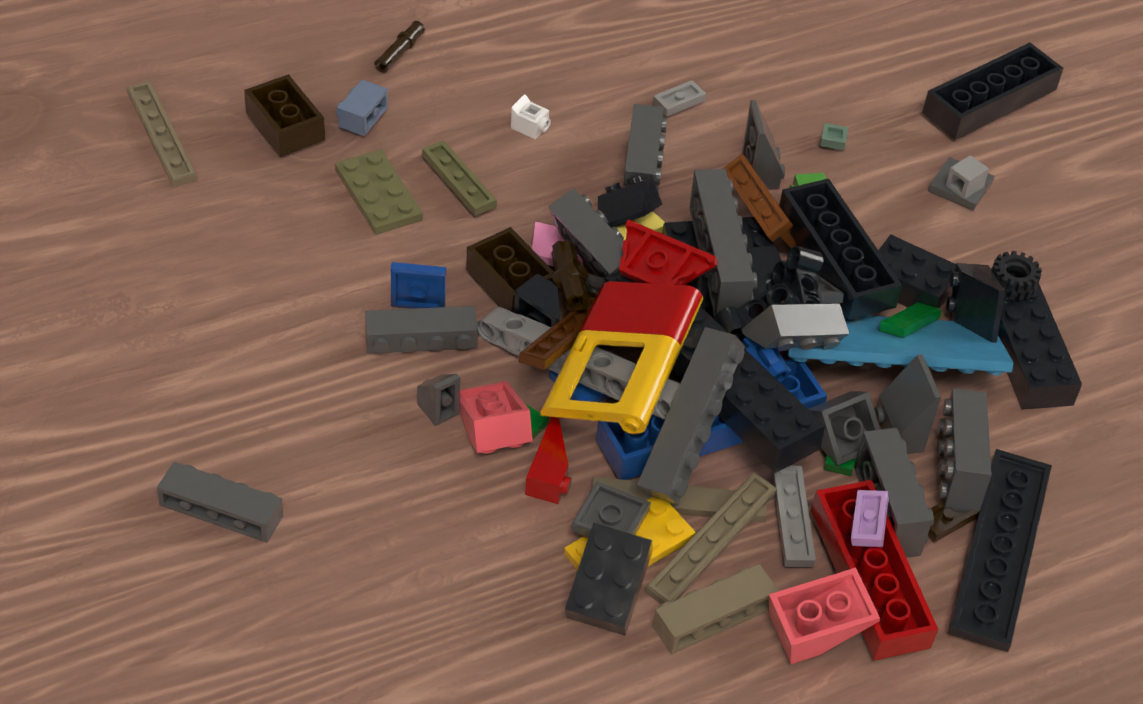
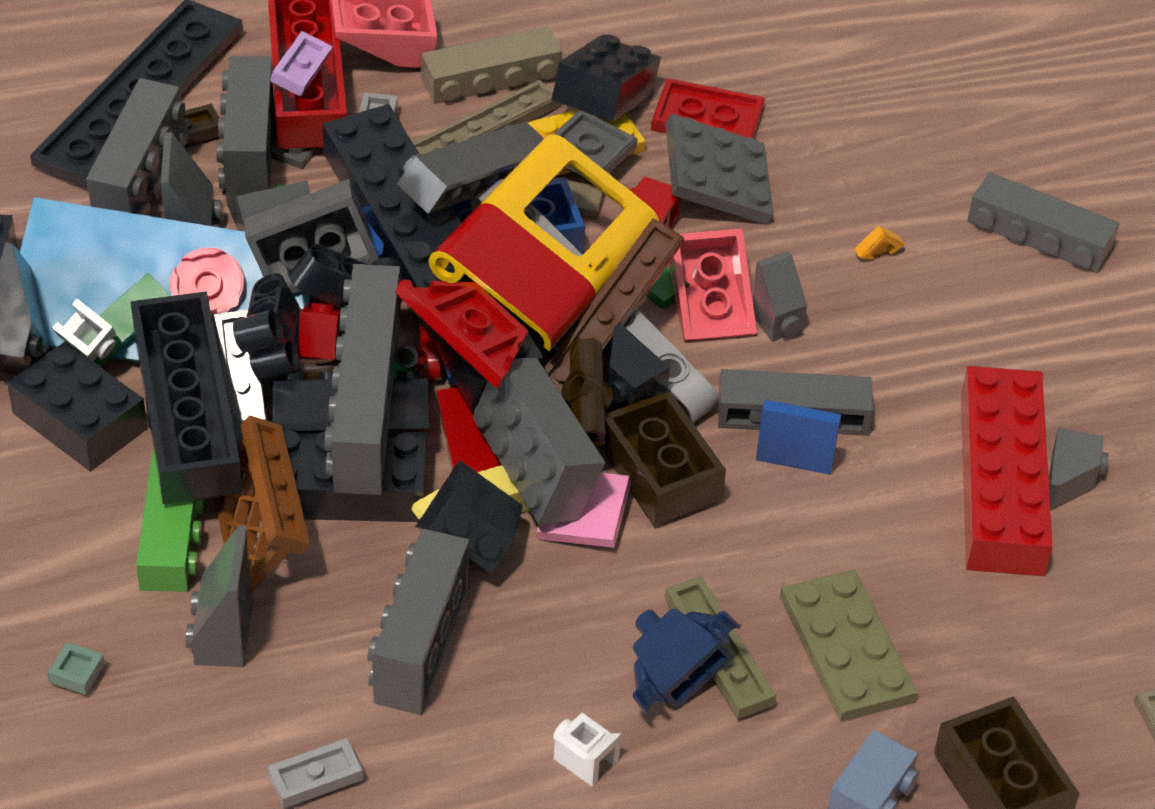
camera: 170 degrees left, 0 degrees up
(219, 302) = (1075, 465): none -> dark grey slope
(269, 295) = (1005, 471): none -> red brick
(358, 470) = (879, 242): none -> light orange tile
(482, 154) = (678, 654): none -> dark blue torso
(498, 511) = (718, 169): none -> dark grey plate
(514, 593) = (708, 105): none -> red tile
(865, 333) = (211, 272): none -> tile
(928, 297) = (87, 332): none -> white window

